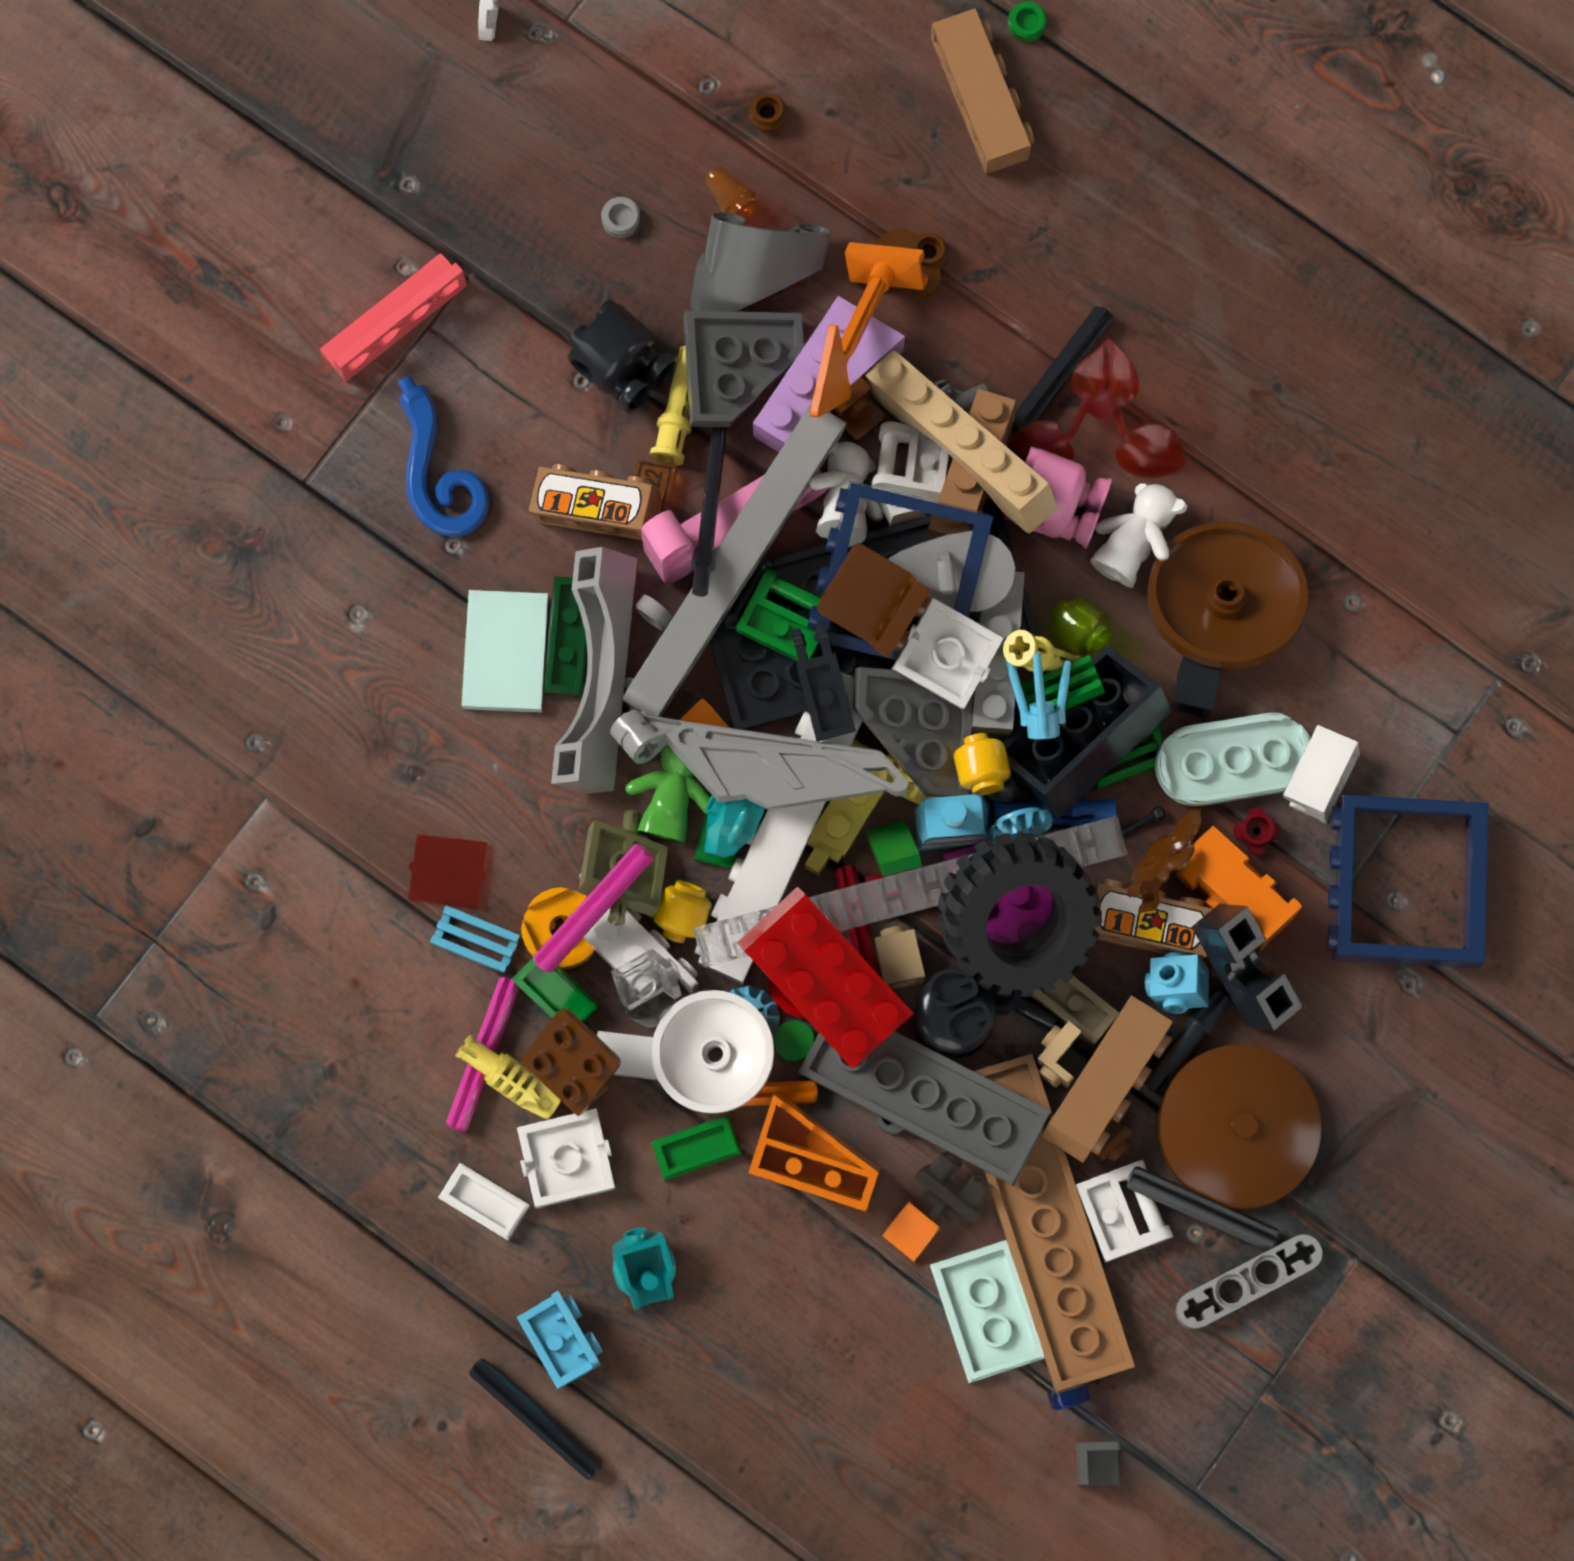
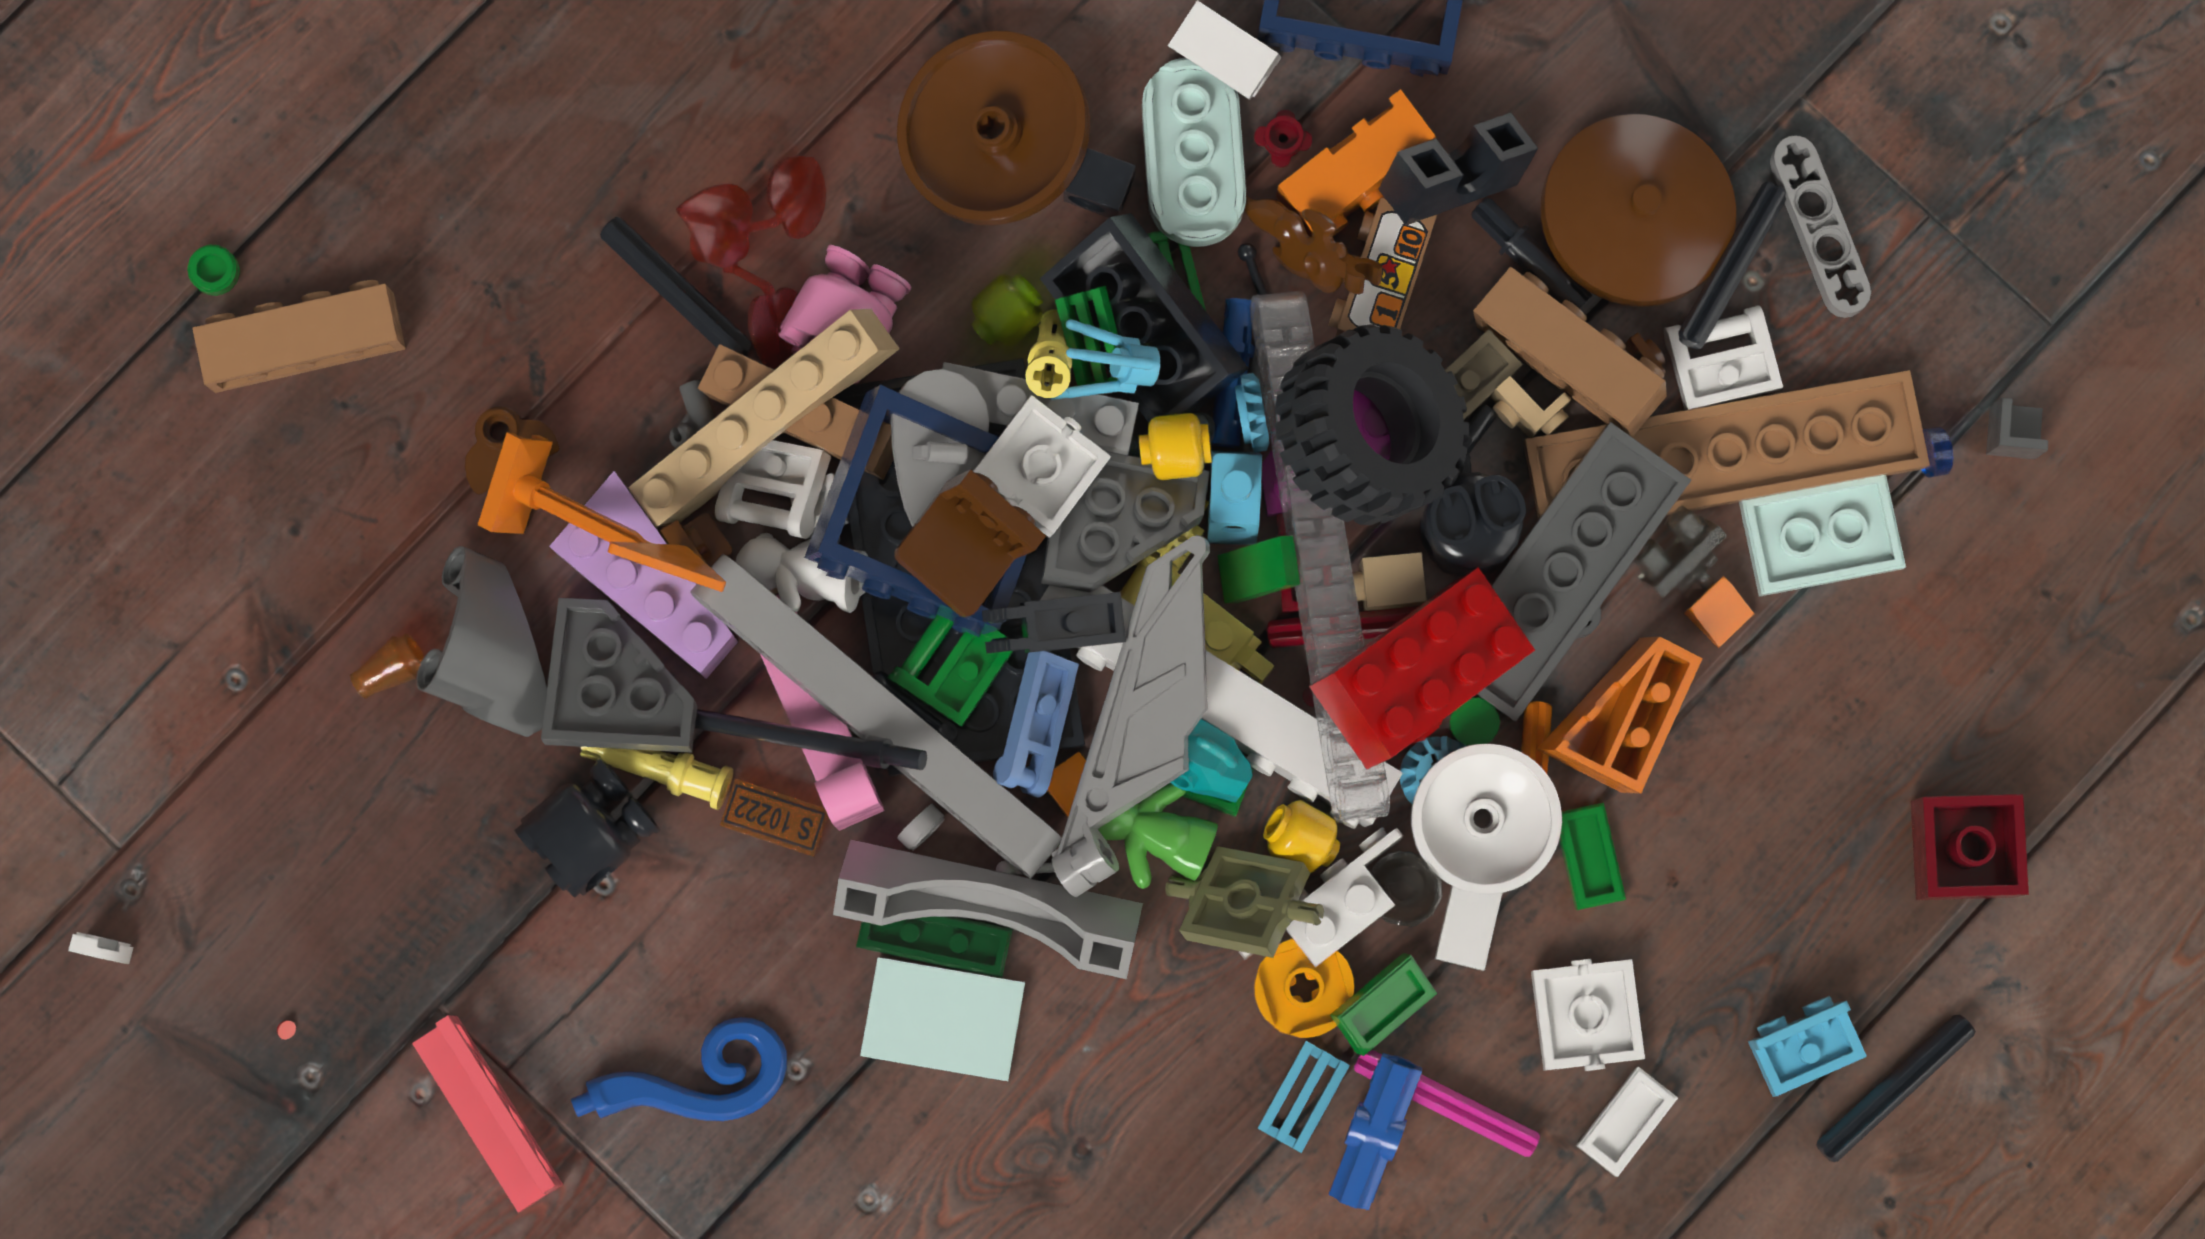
camera: 85 degrees left, 5 degrees up
(441, 160) = (286, 1029): none -> coral piece
(447, 871) = (1212, 1122): clear red piece -> none
(452, 995) = (1375, 1131): none -> blue piece
(509, 1078) = (1484, 1071): light yellow hinge -> none
(572, 1062) = (1481, 992): reddish brown bracket -> none
(593, 501) = (771, 883): brick -> none
(593, 908) = (1301, 941): dark pink axle -> none
(620, 217) = (396, 809): light grey tile -> none
(644, 1267) = (1730, 935): teal hand -> none
(646, 978) = (1388, 888): clear bracket -> none
(738, 1454) = (1969, 847): none -> dark red brick
(745, 687) = (1037, 723): none -> medium blue plate
(763, 102) = (274, 597): reddish brown plate -> none
(1136, 533) = (899, 224): white piece -> none
(1178, 982) = (1473, 243): medium azure brick -> none

